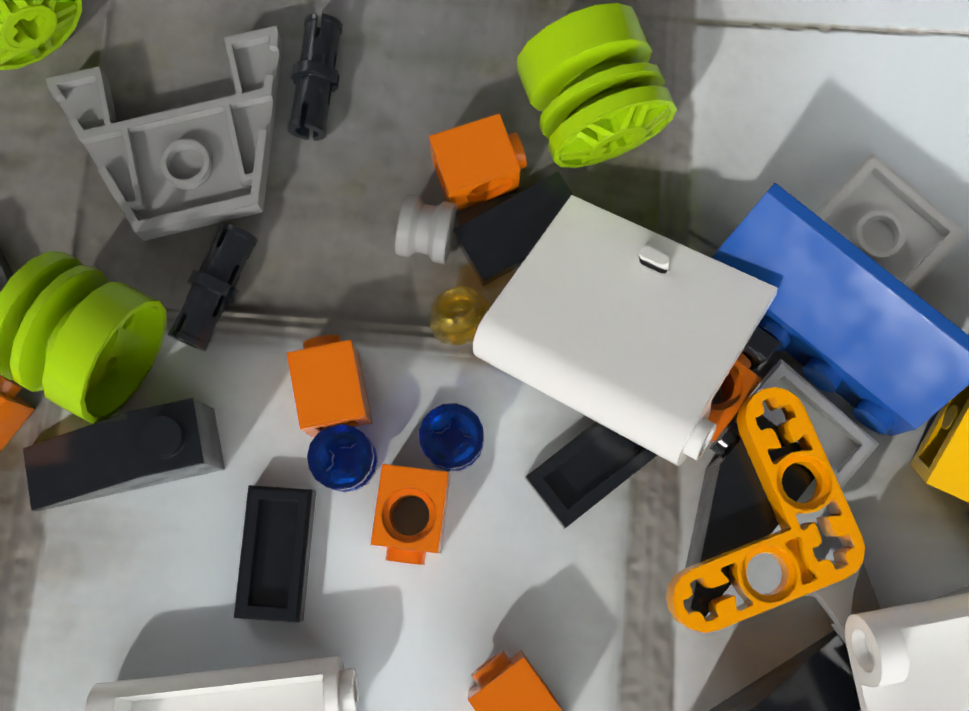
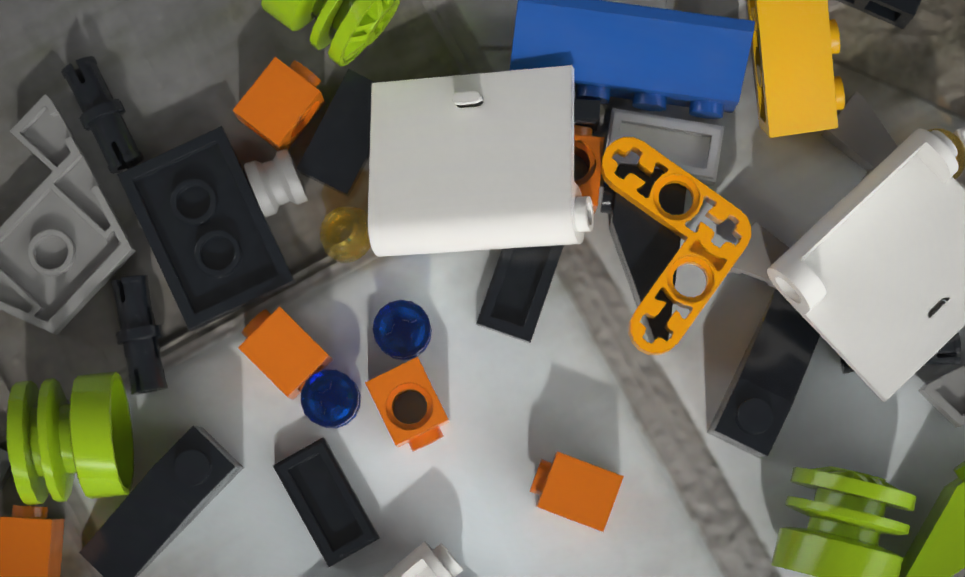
camera: 30 degrees left, 5 degrees up
(335, 232) = (206, 228): none -> black plate

